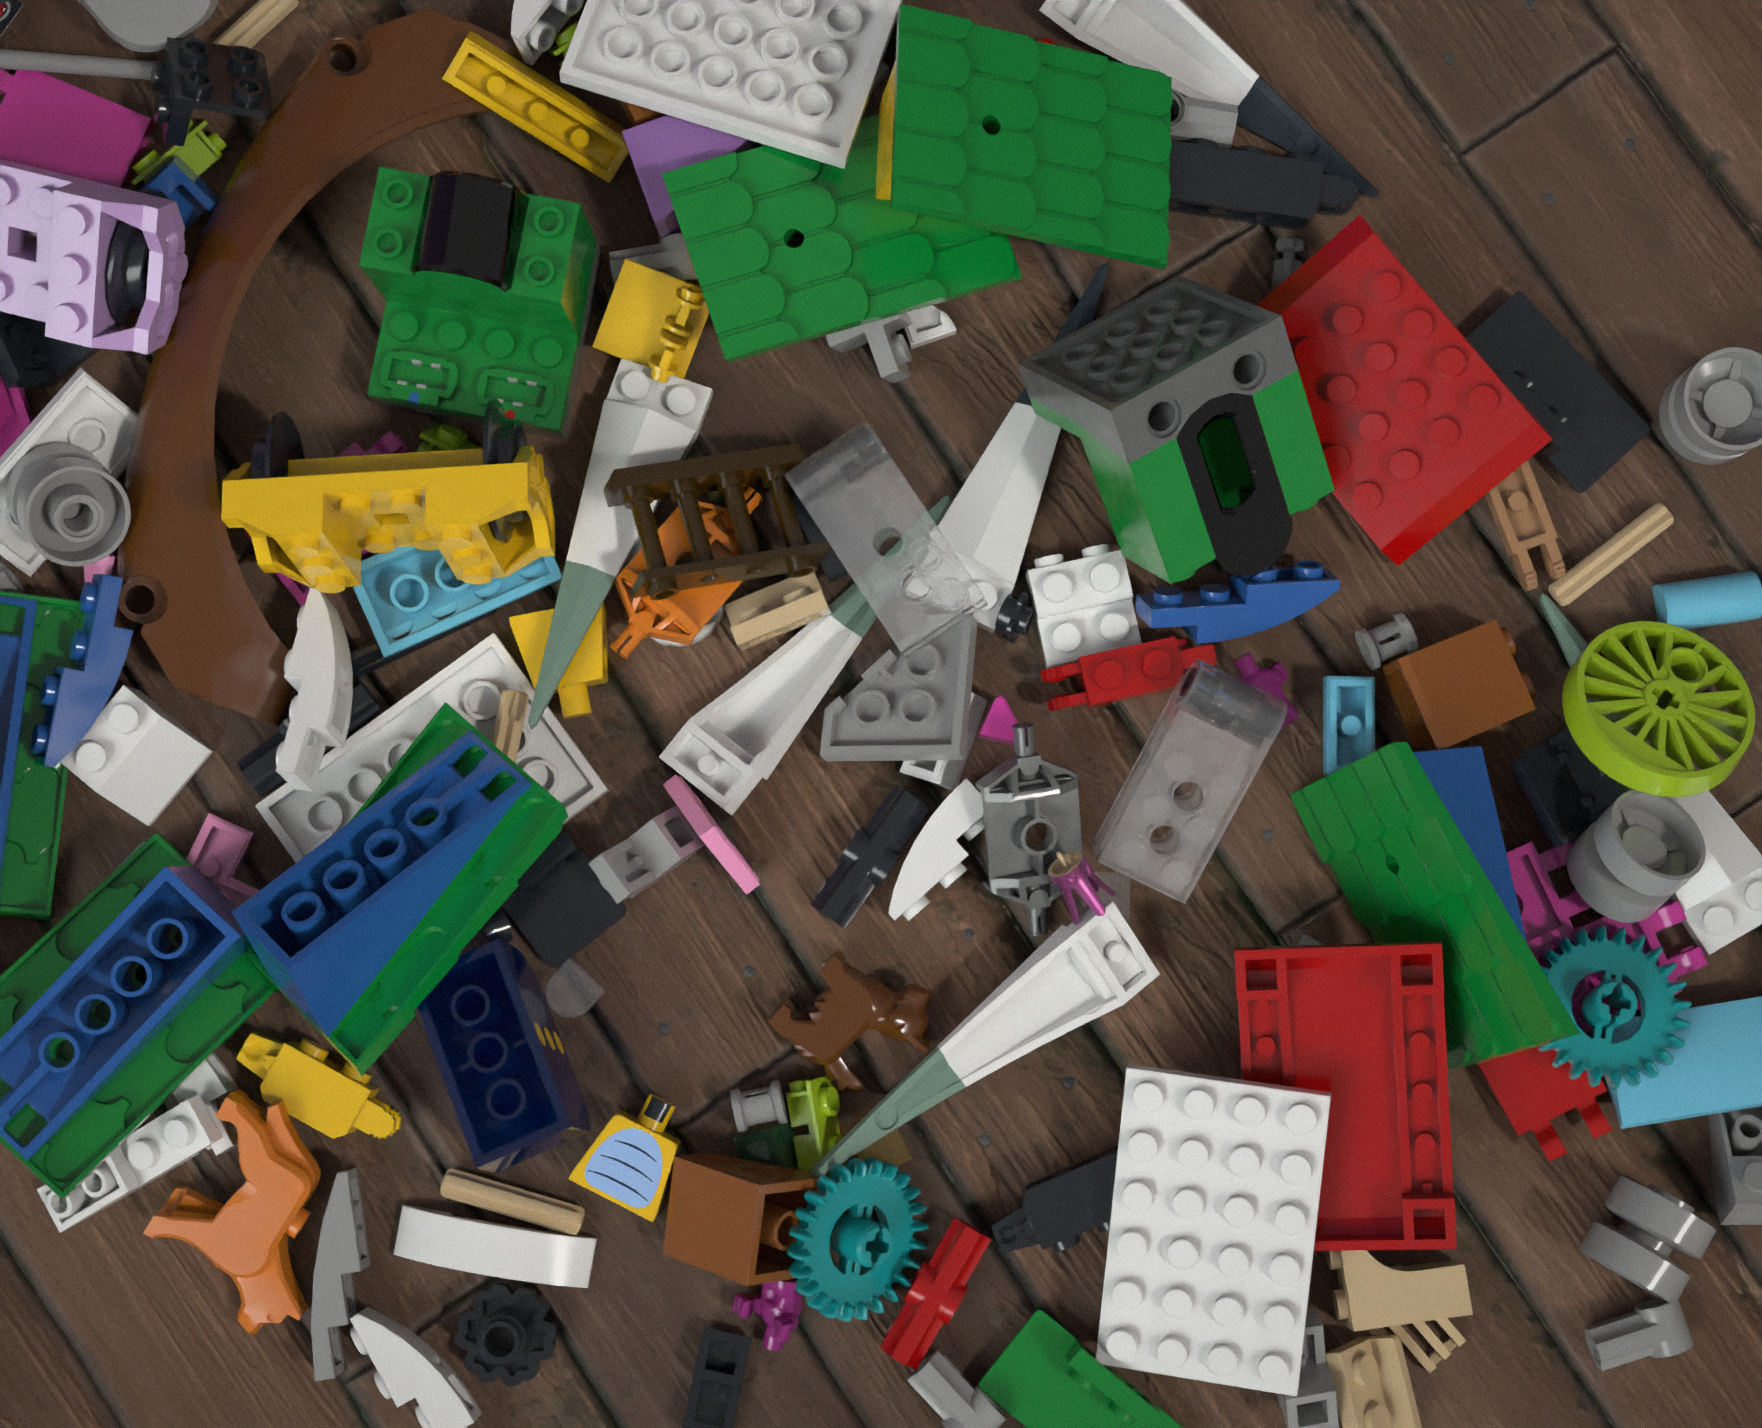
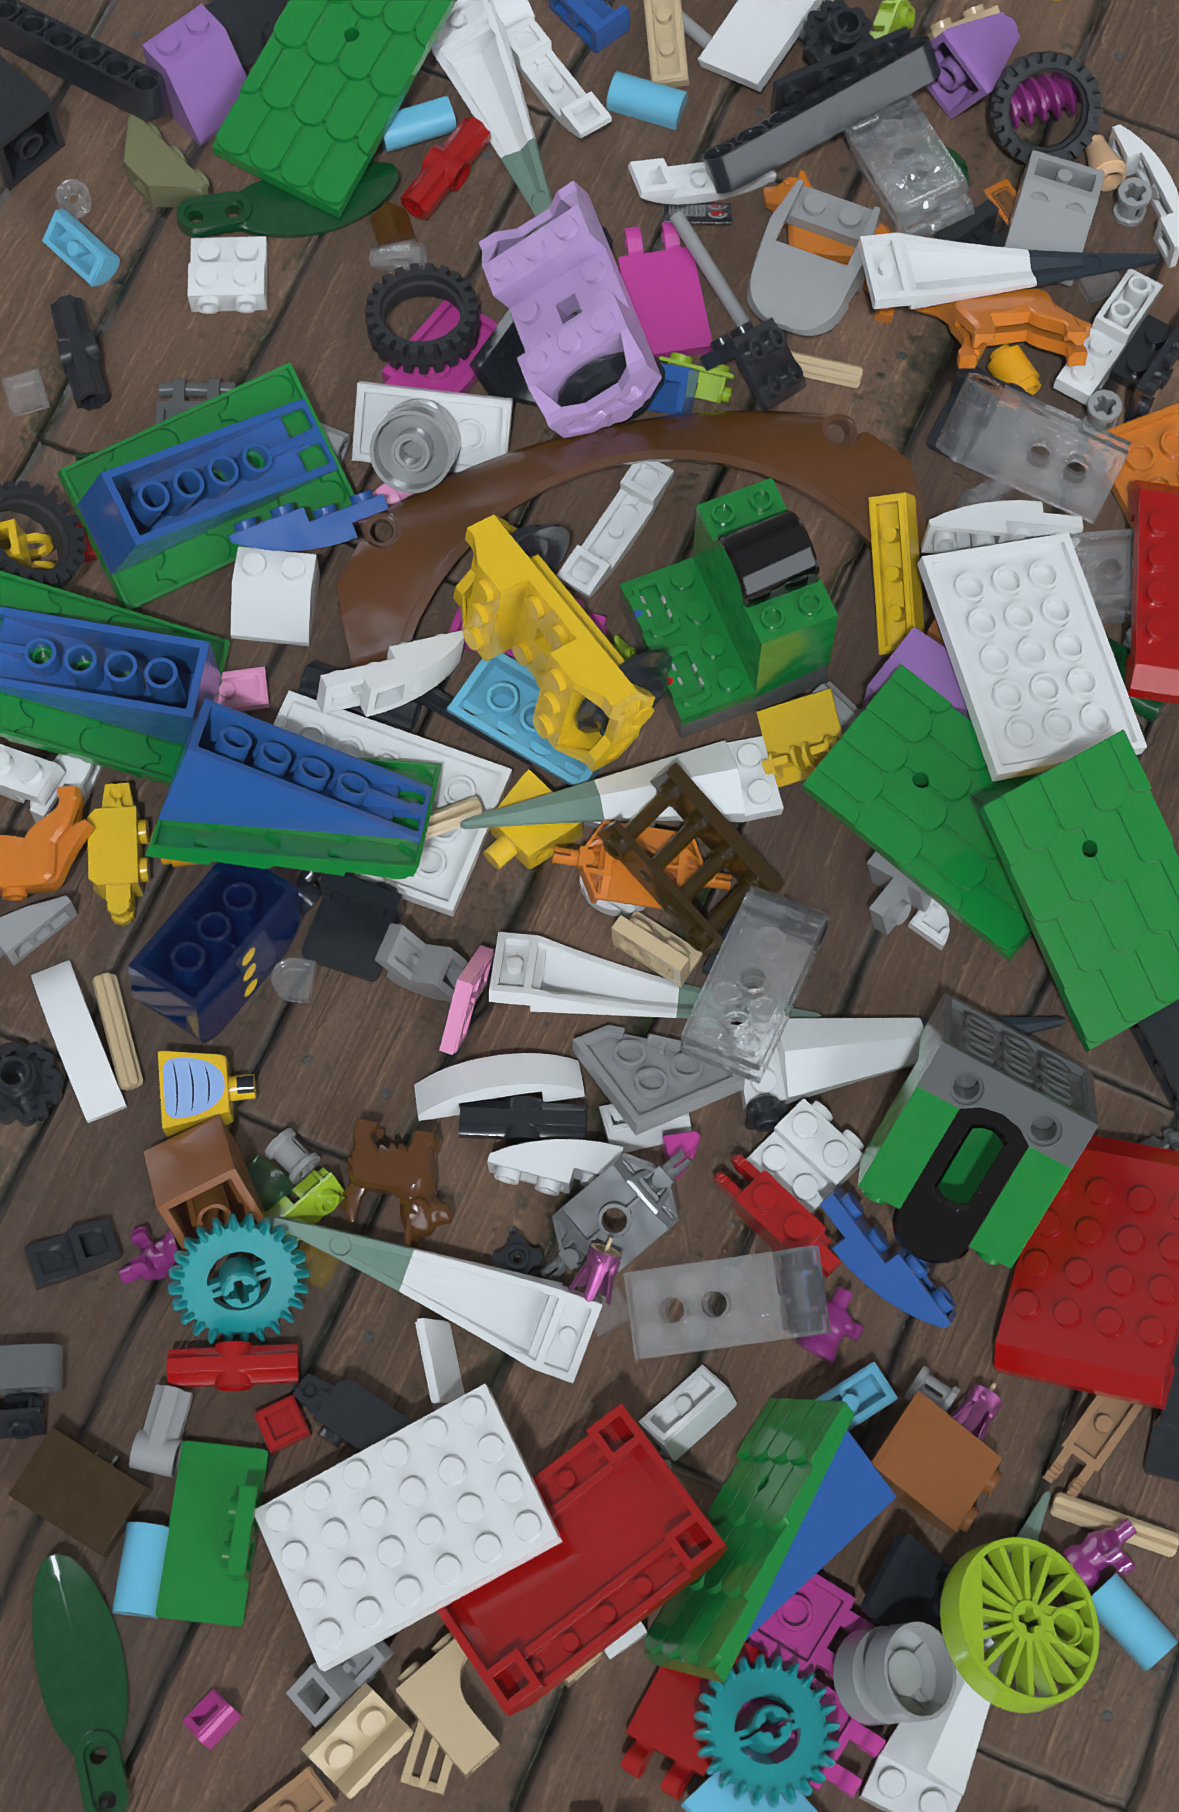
camera: 55 degrees right, 15 degrees down
(296, 357) = (617, 528): none -> white slope
(812, 855) = (495, 1078): none -> white slope
(990, 944) = (514, 1247): none -> black plate
(1020, 1278) = (282, 1424): none -> red tile
(1060, 1089) = (439, 1361): none -> white slope
(1254, 881) = (688, 1412): none -> white slope
(1430, 598) = (978, 1410): none -> flat silver piece
(1630, 586) = (1102, 1550): none -> magenta piece

